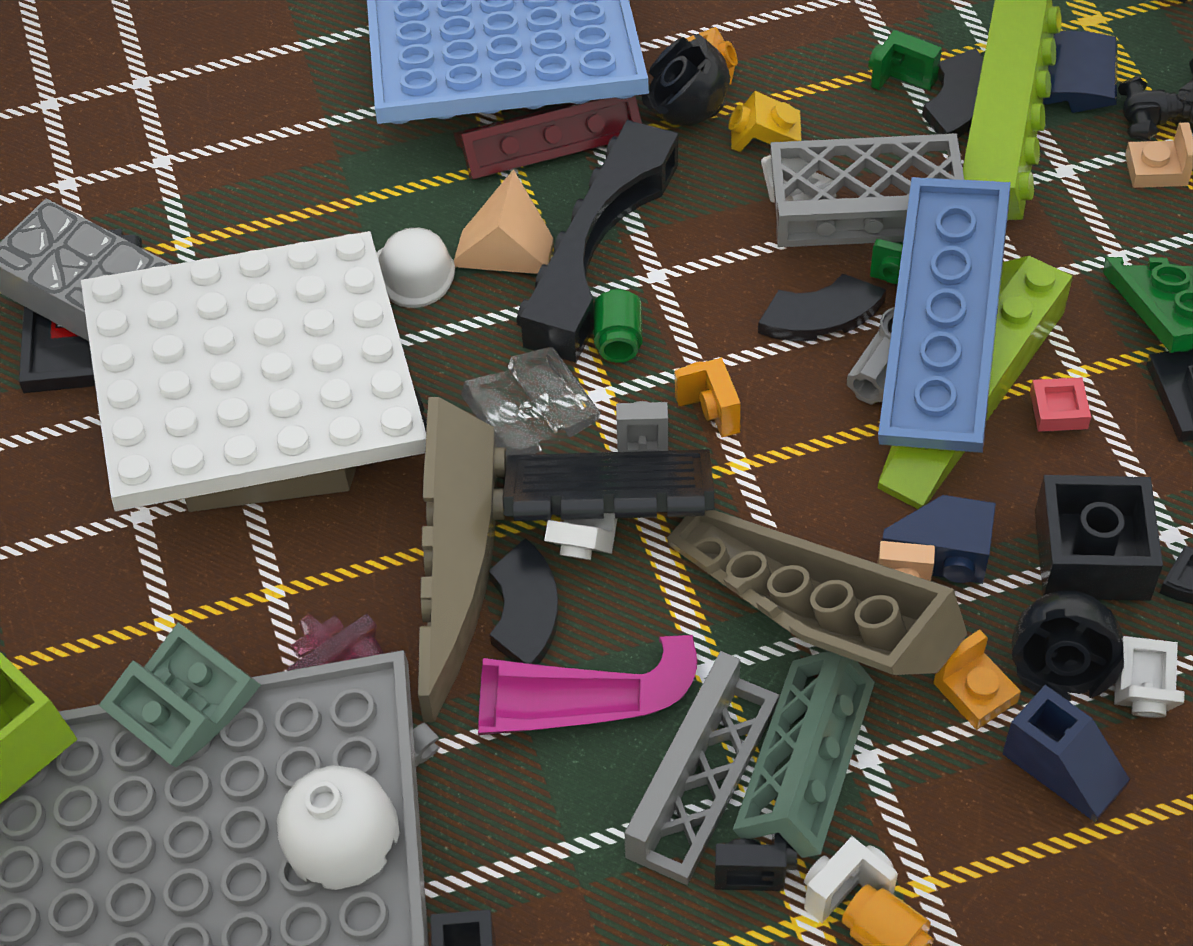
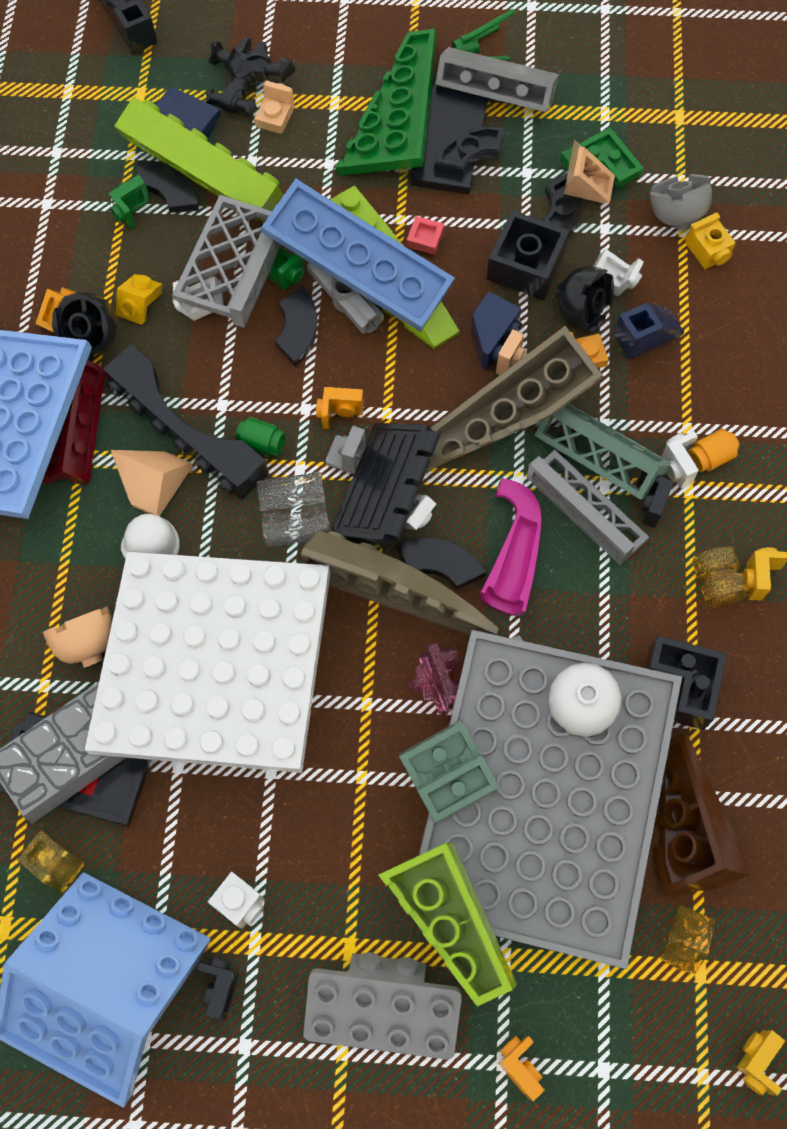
camera: 70 degrees left, 15 degrees up
(239, 228) = (81, 638): none -> light nougat cylinder

